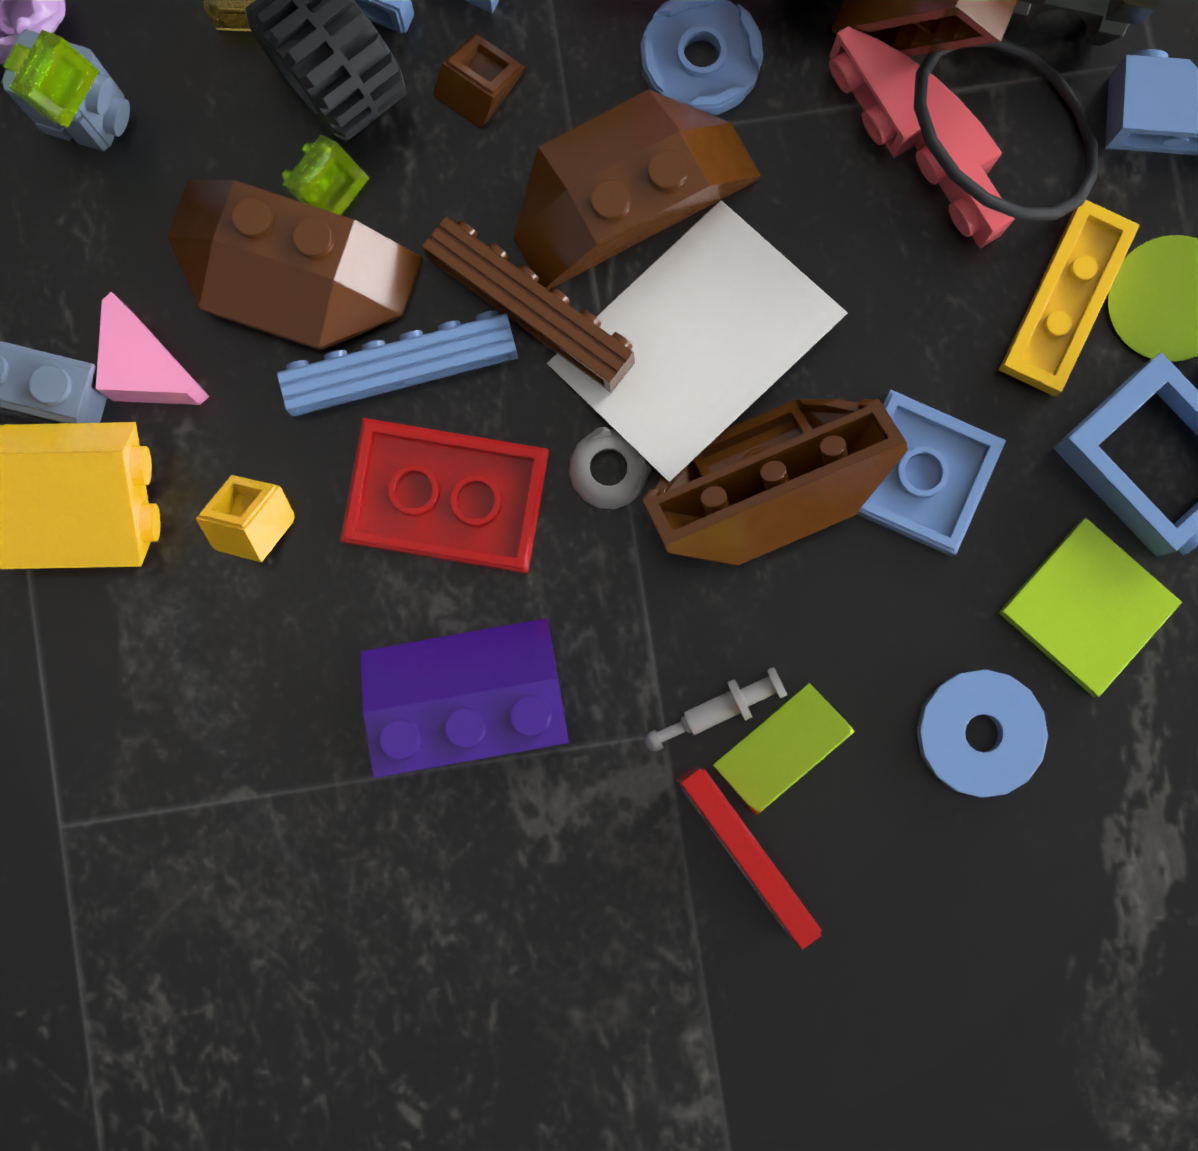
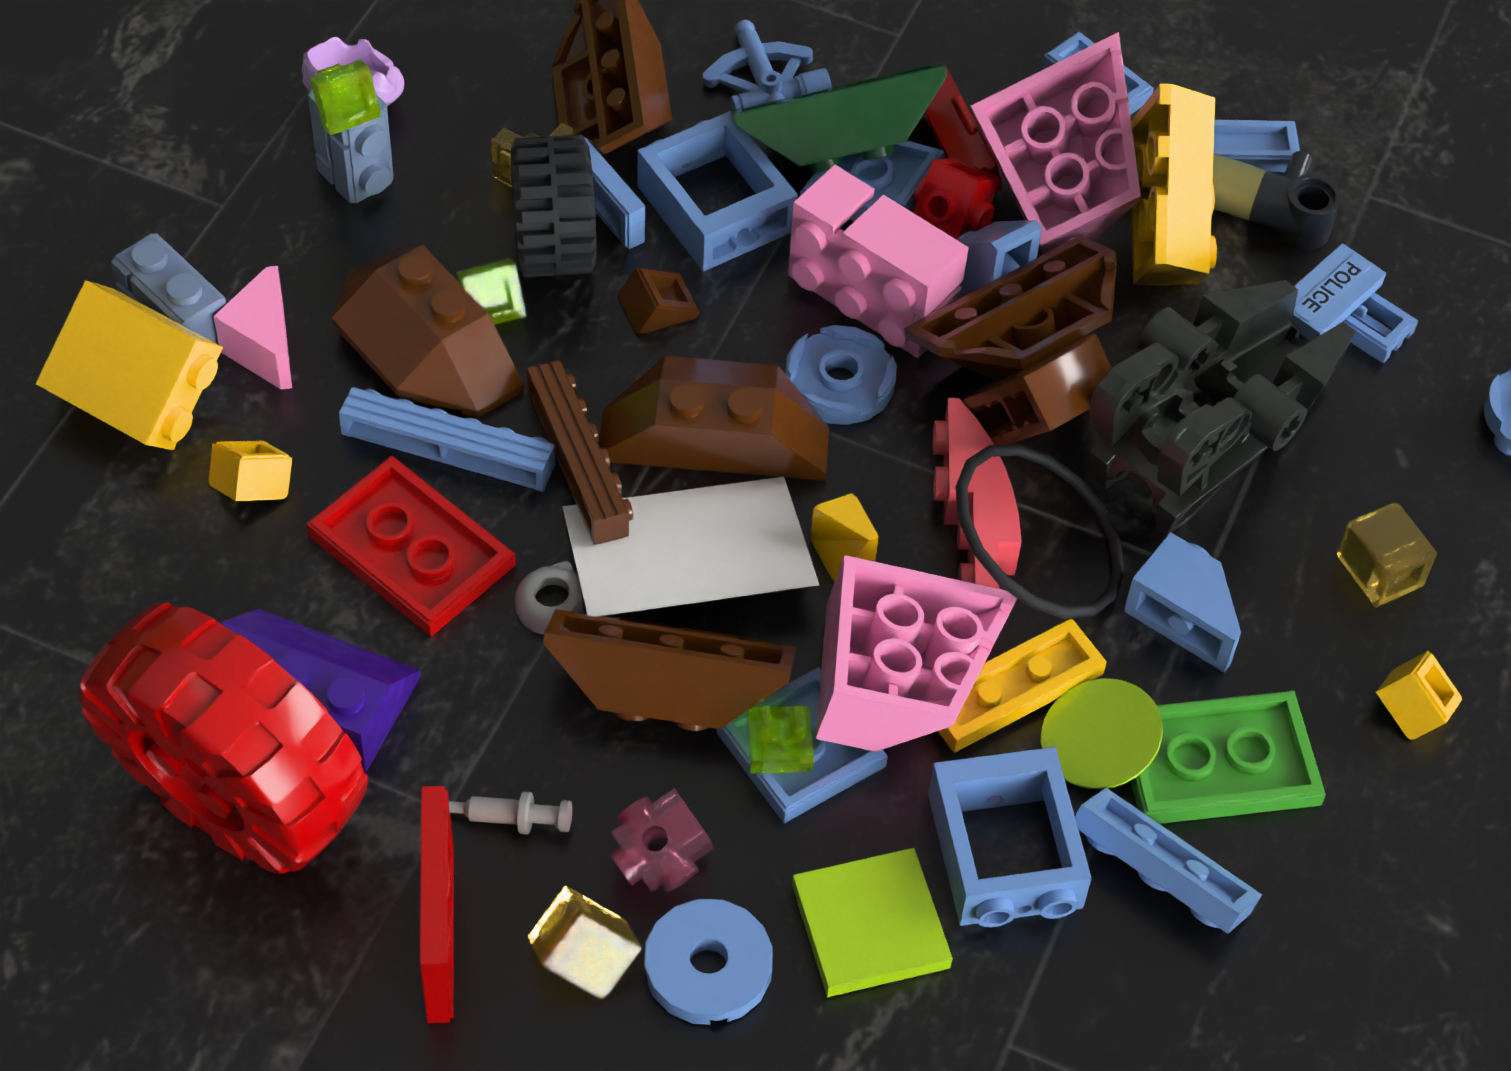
camera: 30 degrees right, 30 degrees down
(476, 860) = (223, 736): none -> red wheel
(783, 748) = (531, 874): lime slope -> none
(830, 241) = (842, 529): none -> yellow slope
(875, 790) = (584, 942): none -> clear yellow panel
(883, 663) = (664, 818): none -> clear pink brick
(914, 491) = (780, 739): none -> clear neon green tile
(973, 343) = (901, 652): none -> bright pink wedge

